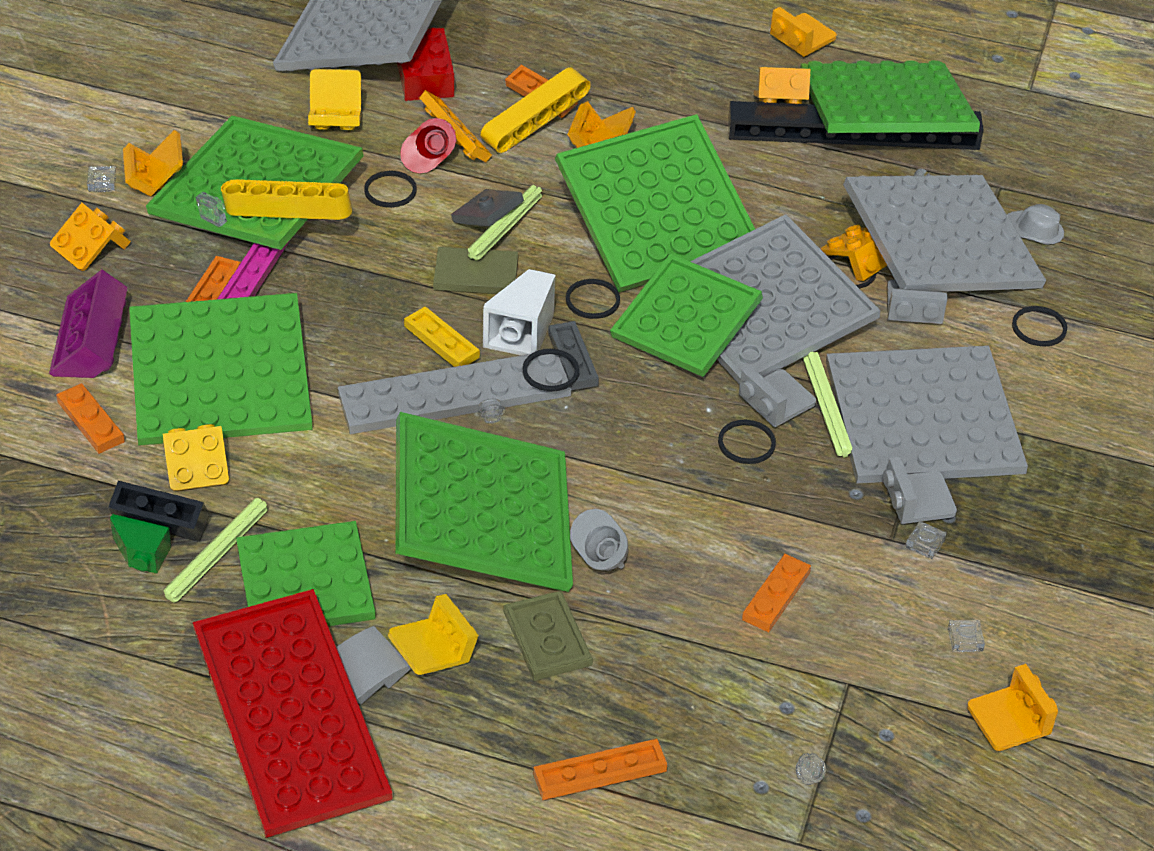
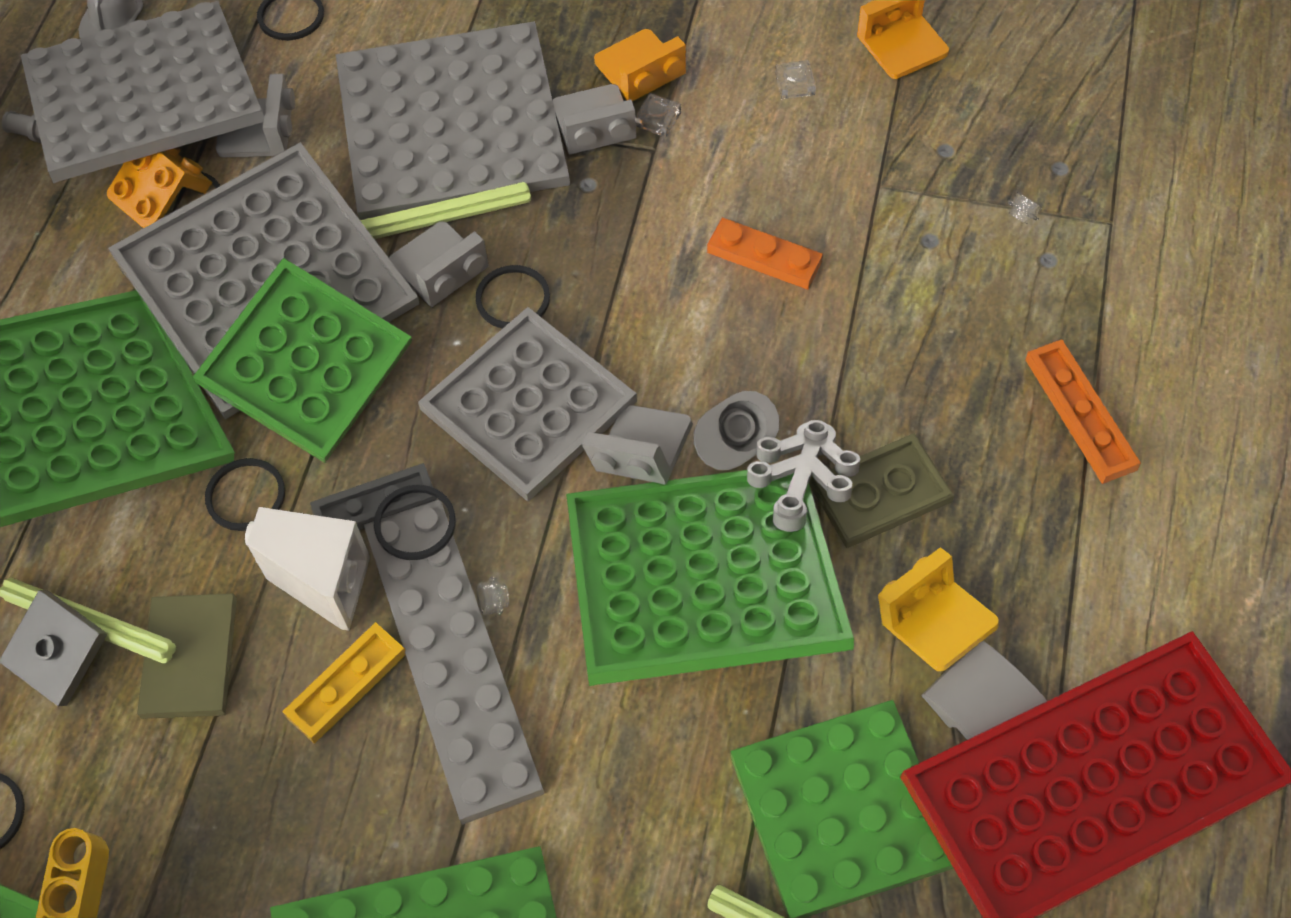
camera: 90 degrees left, 15 degrees up
(589, 491) = (640, 444): none -> light grey bracket
(589, 592) = (813, 439): none -> light grey plant
(646, 438) = (527, 402): none -> light grey plate
(977, 529) = (642, 63): none -> light orange bracket

